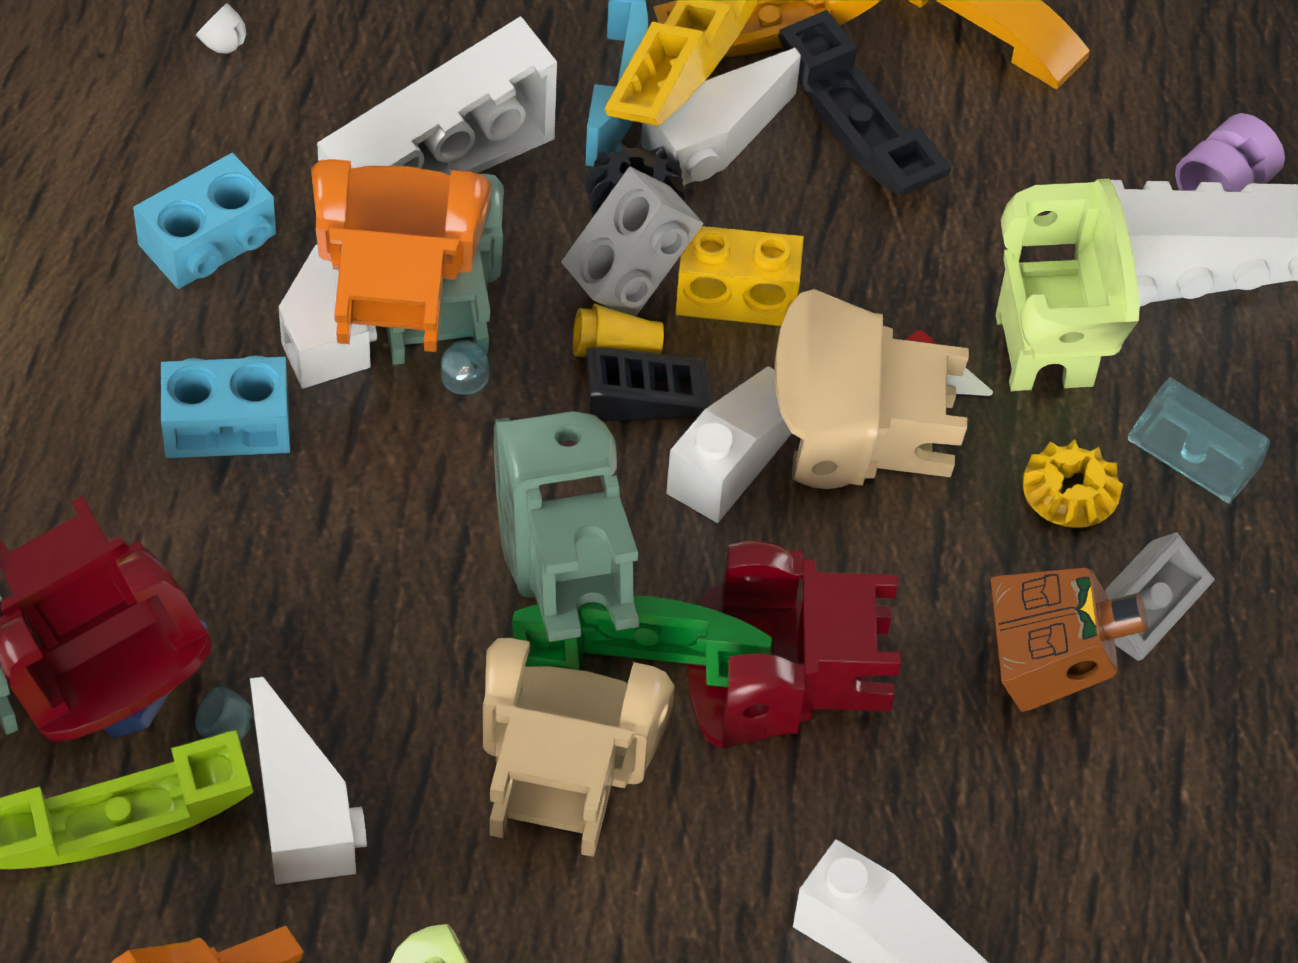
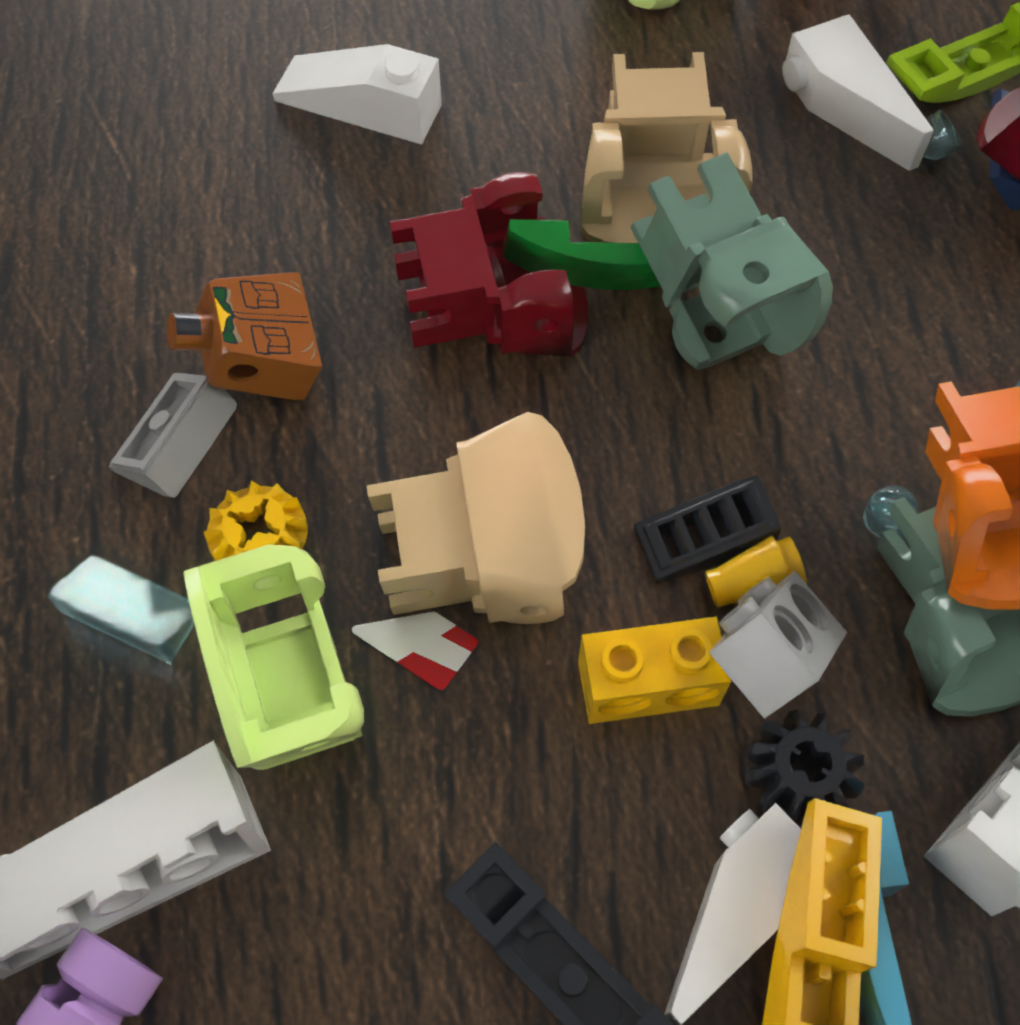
camera: 170 degrees right, 10 degrees up
(727, 447) = (606, 465): white slope -> none

